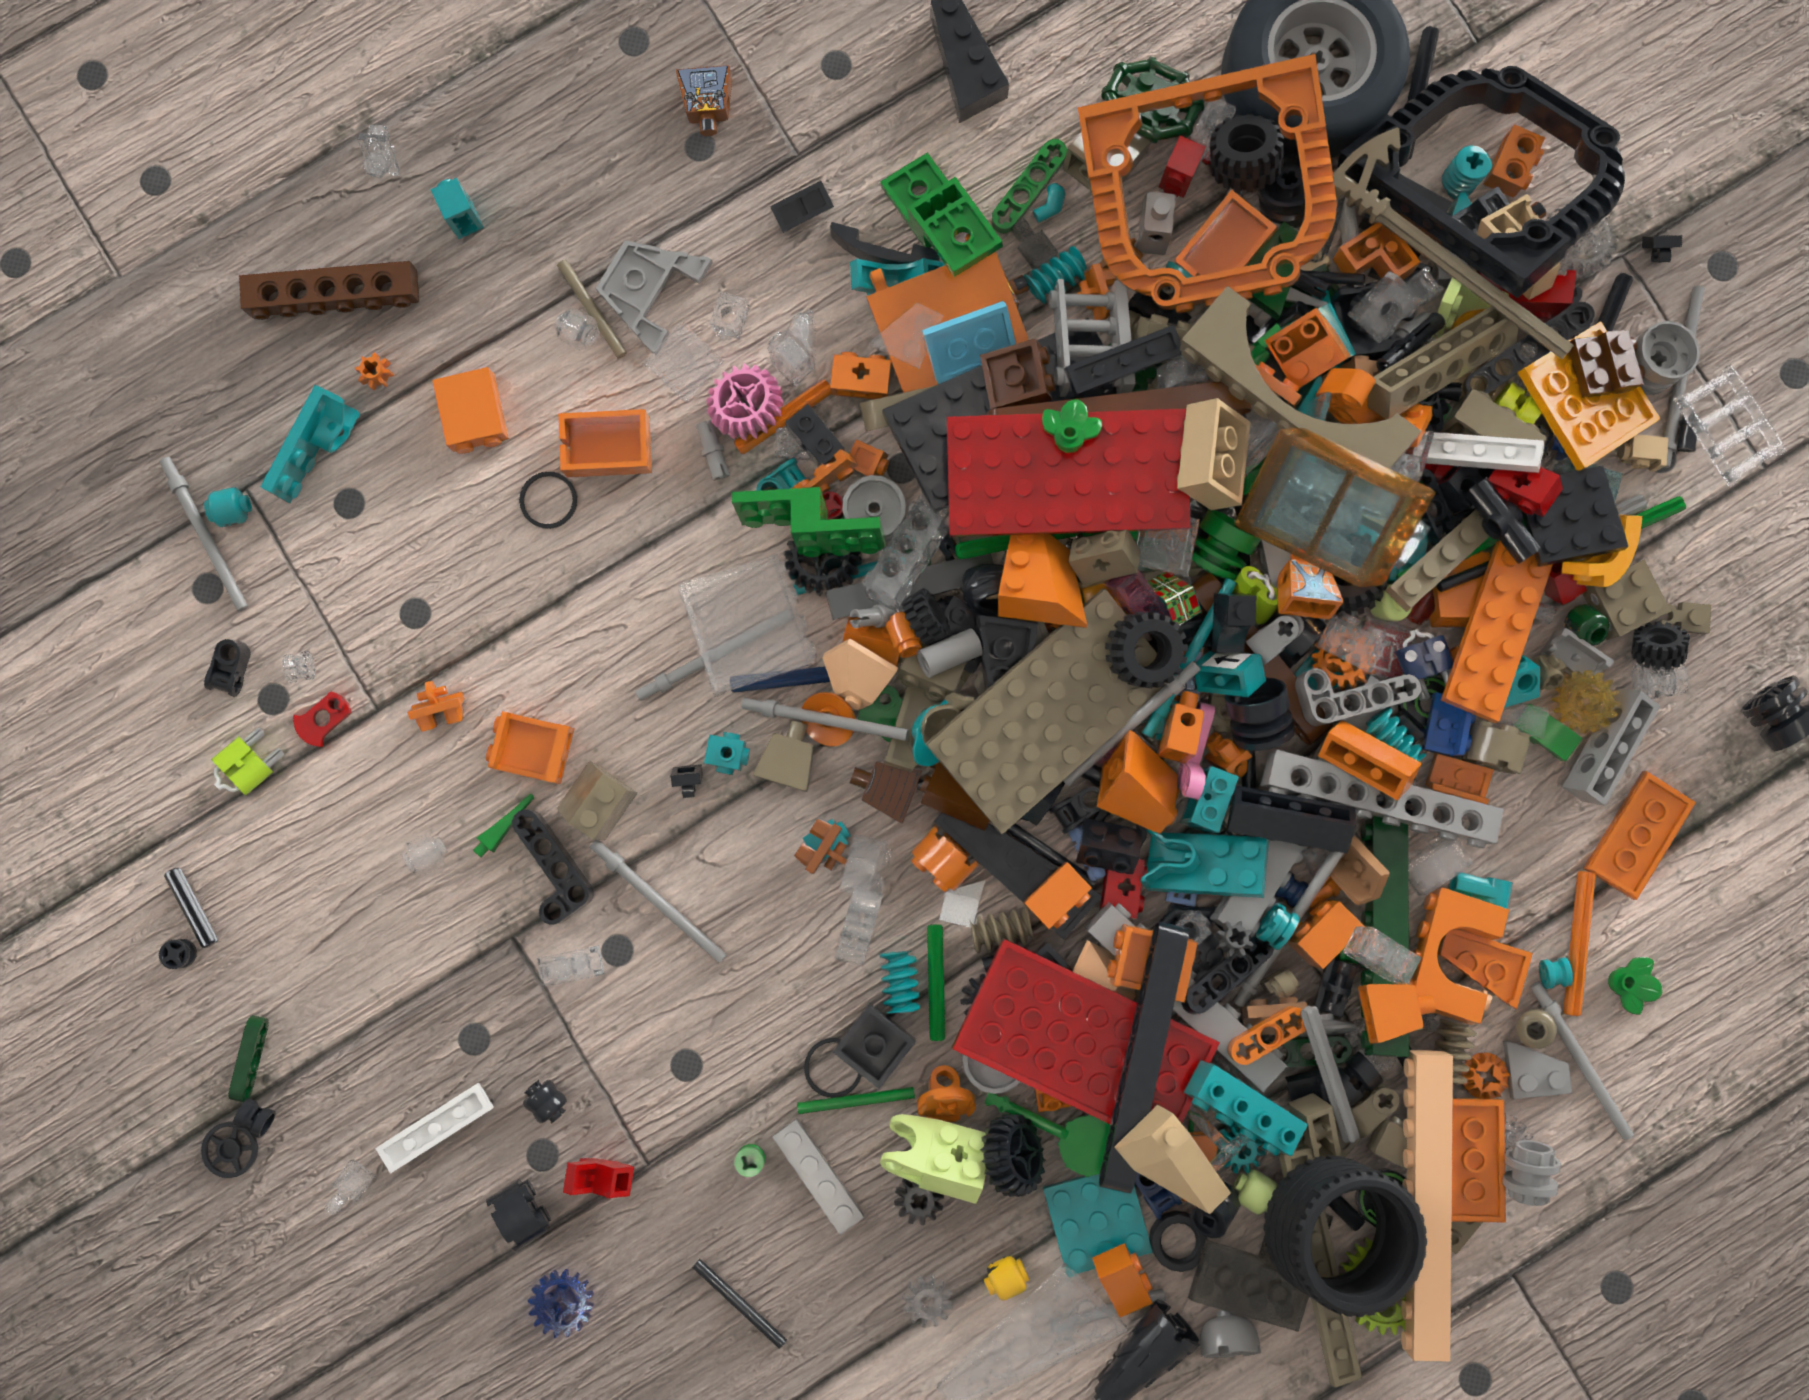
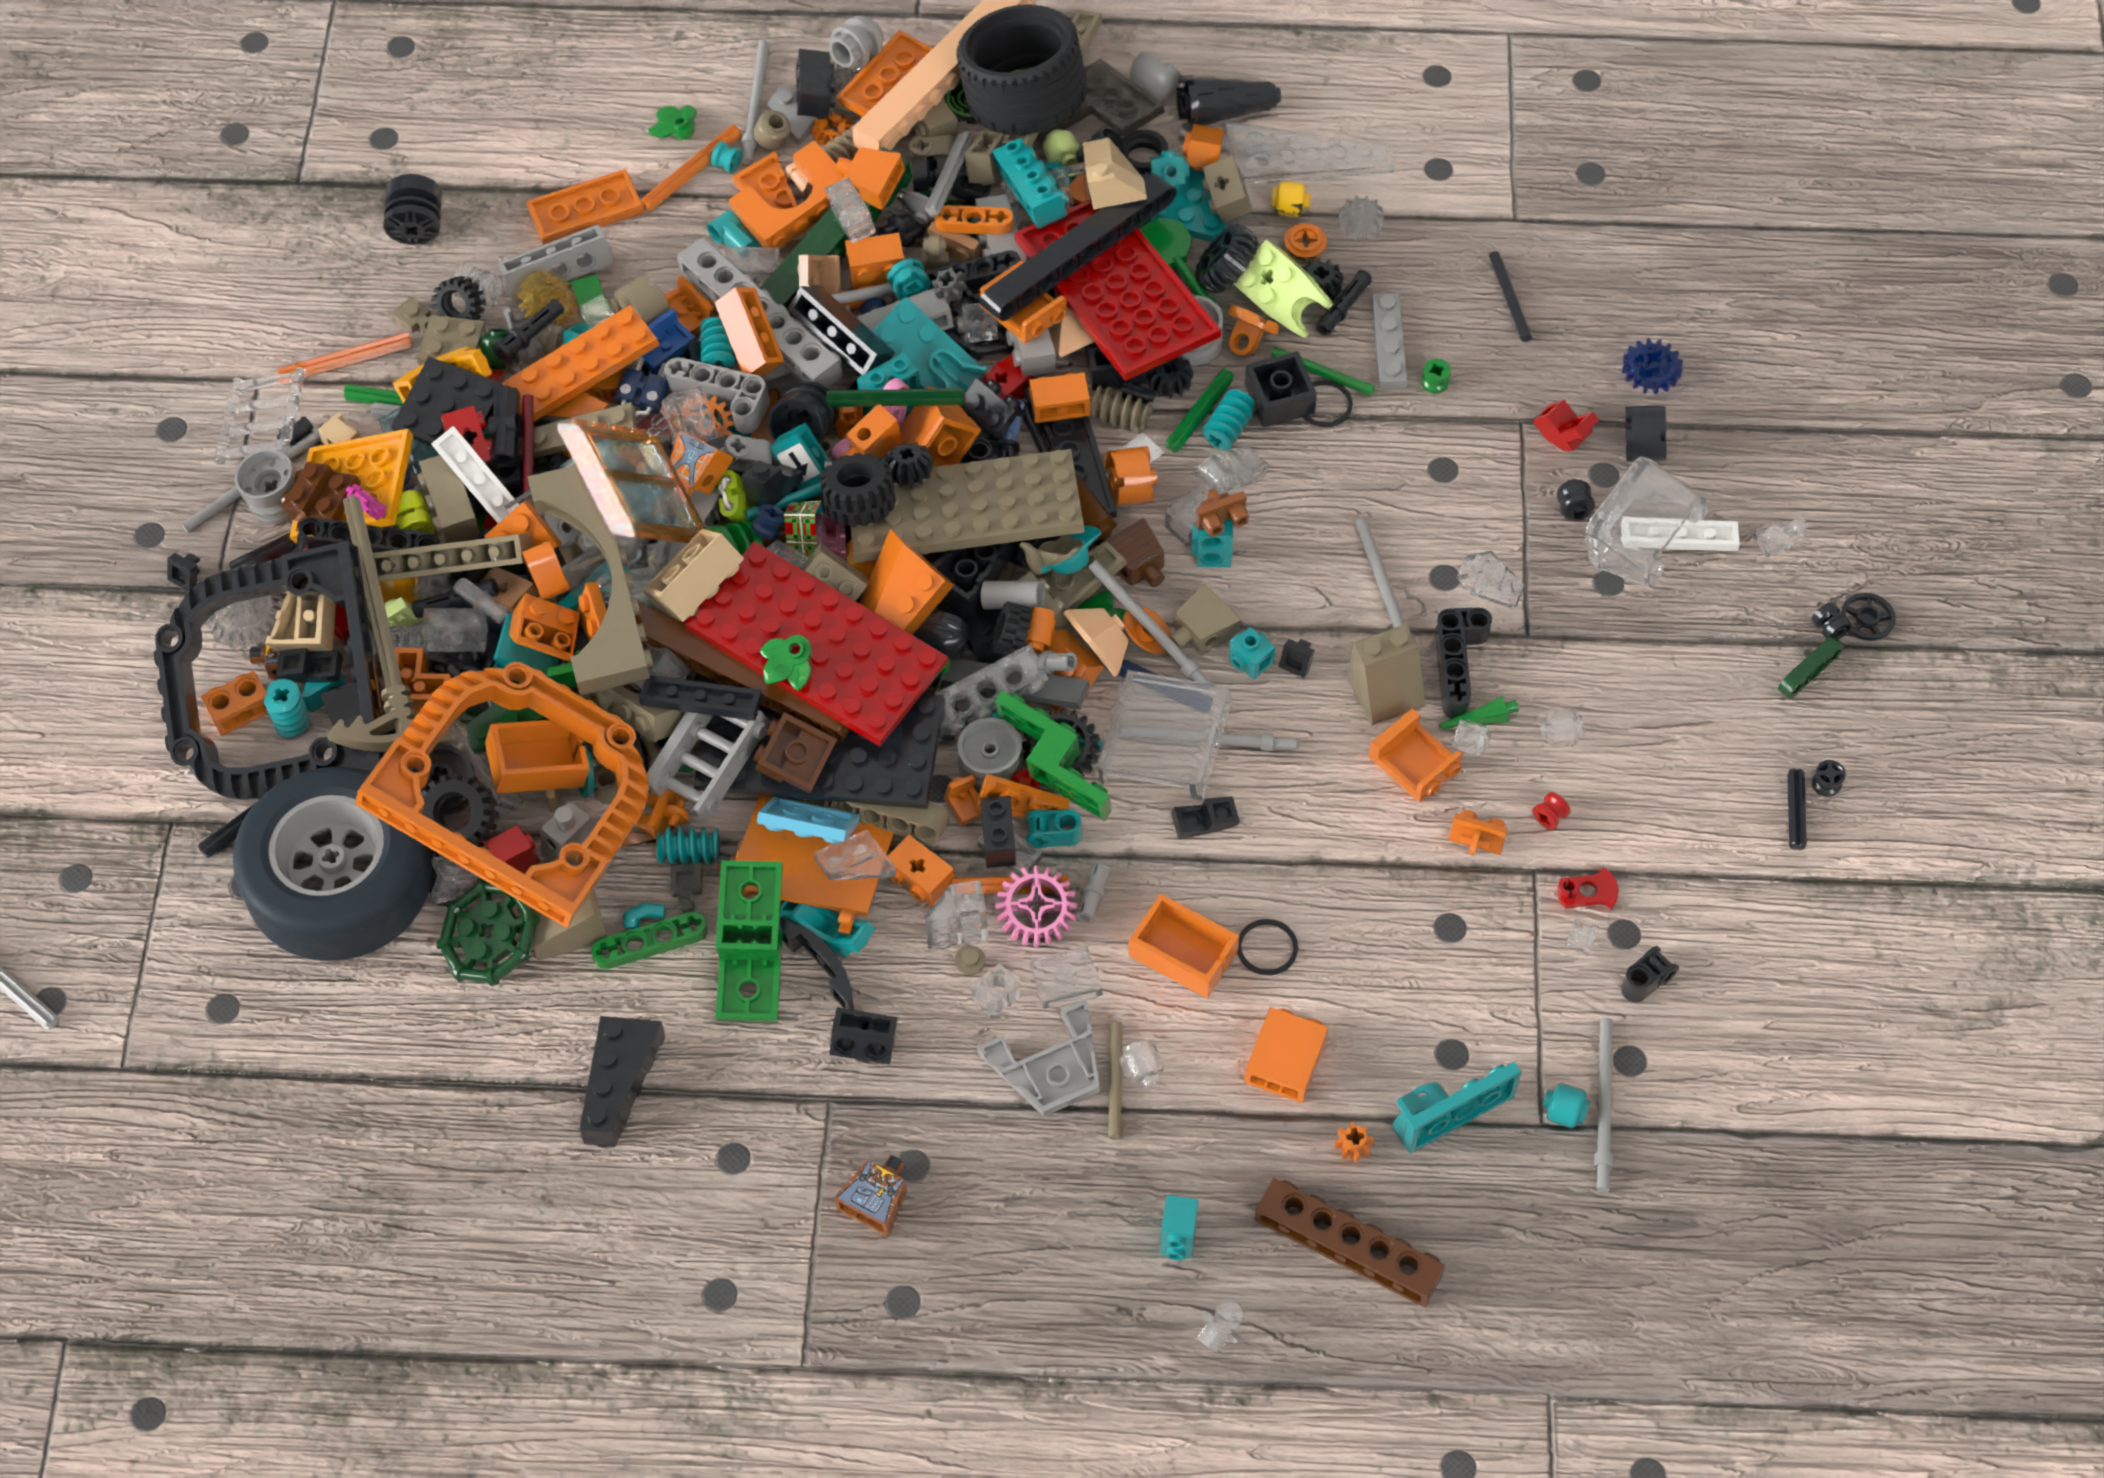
camera: 145 degrees left, 25 degrees down
(243, 764) = (1681, 887): lime piece -> none
(389, 767) = (1551, 810): none -> red wheel
(463, 1110) = (1640, 521): none -> clear windscreen
(490, 789) = (1471, 737): none -> clear brick
(664, 582) = (1203, 819): none -> black slope
(767, 329) = (970, 960): none -> dark tan plate
(884, 1218) = (1342, 304): none -> black pin
(960, 1253) = (1314, 235): none -> orange gear
(1050, 1234) = (1227, 189): none -> dark tan brick
(1133, 722) = (909, 464): none -> black gear
(1134, 1224) = (1170, 158): none -> teal brick
(1184, 769) = (895, 397): none -> dark green axle
(1207, 574) = (768, 521): none -> dark blue wheel
(1384, 343) = (481, 600): none -> clear axle
(1468, 517) = (528, 438): none -> dark red bar
(1538, 1107) = (814, 83): none -> black brick
(1557, 370) = (369, 503): none -> dark pink axle
(1572, 631) = (520, 337): none -> black pin
(1712, 535) = (351, 355): none -> orange axle

